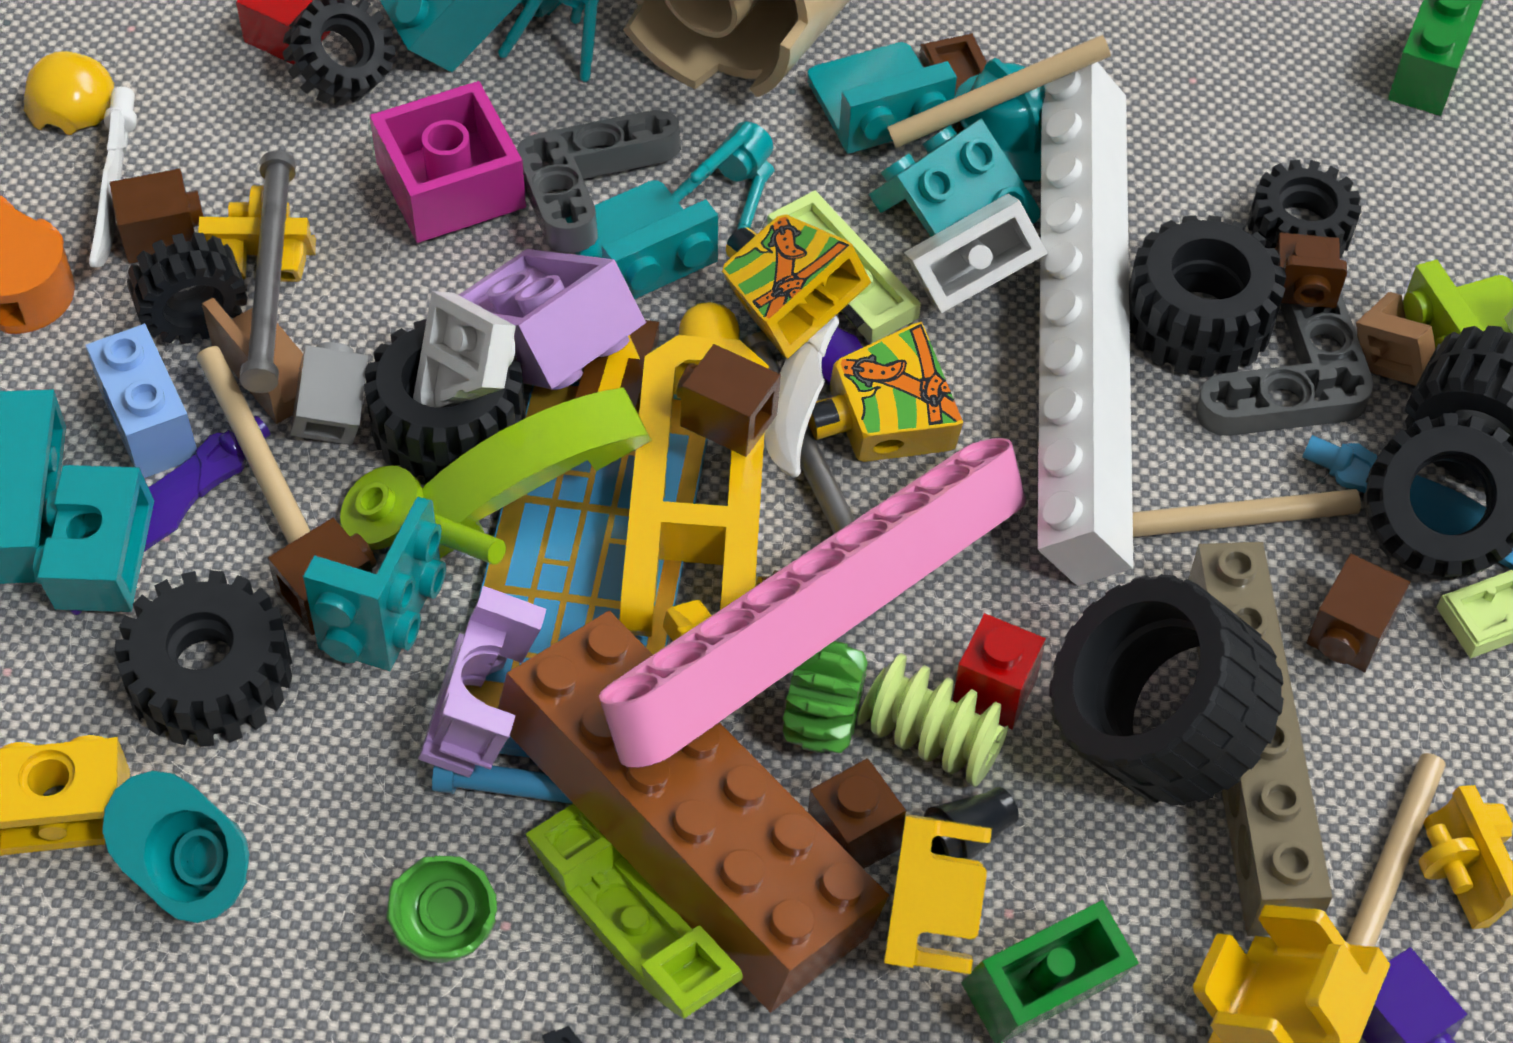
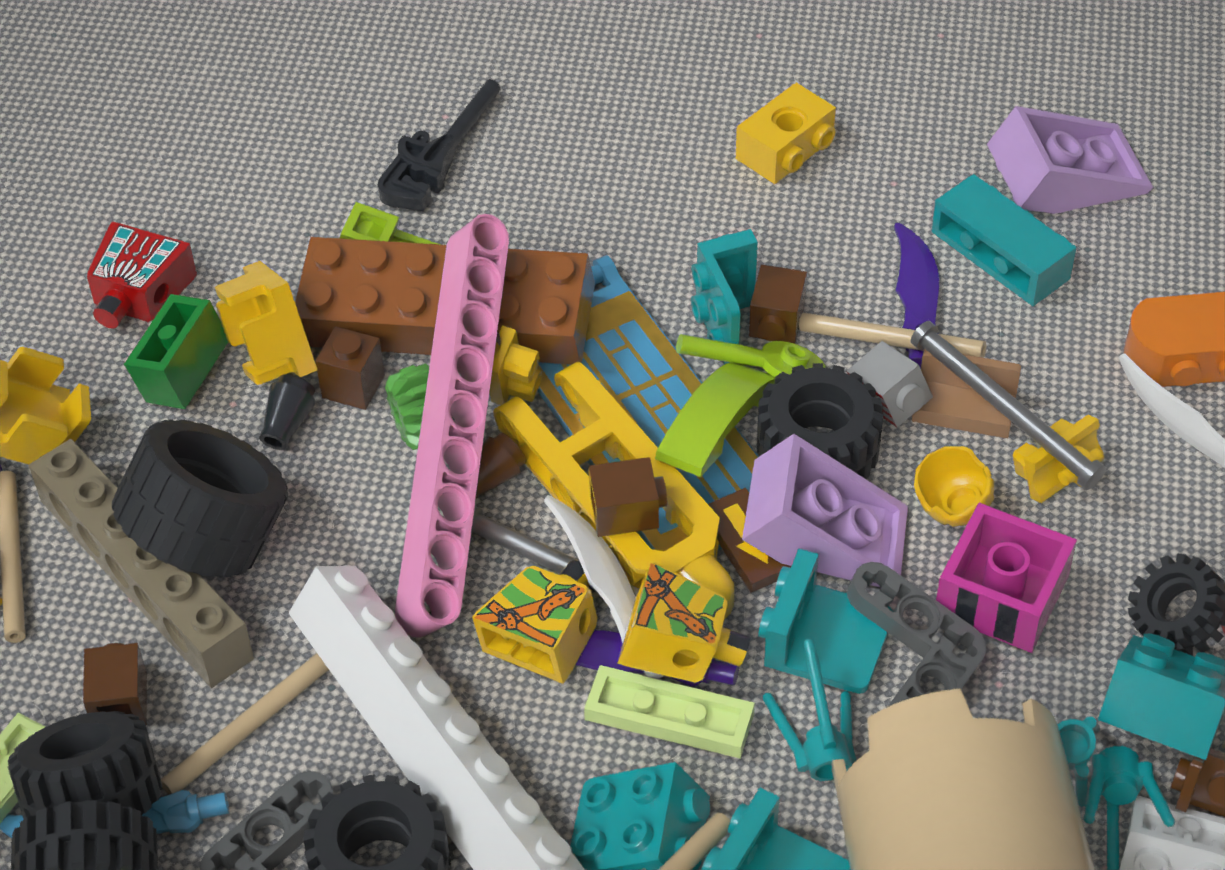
camera: 145 degrees right, 5 degrees down
(114, 514) = (914, 221): teal brick -> none
(142, 400) = (997, 313): light blue brick -> none
(153, 210) = (1142, 428): reddish brown brick -> none
(176, 845) = (685, 150): teal piece -> none
(181, 265) = (1050, 377): black tyre -> none
(211, 697) = (811, 249): black tyre -> none
(388, 269) = (952, 485): none -> yellow hair
(442, 908) = (533, 198): bright green hair -> none
(461, 726) = (629, 303): lavender piece -> none
(462, 352) = (809, 398): white wing -> none
(934, 720) = (347, 446): yellowish green piece -> none
(975, 252) = (568, 748): white brick -> none
(1000, 667) = (329, 495): red brick -> none

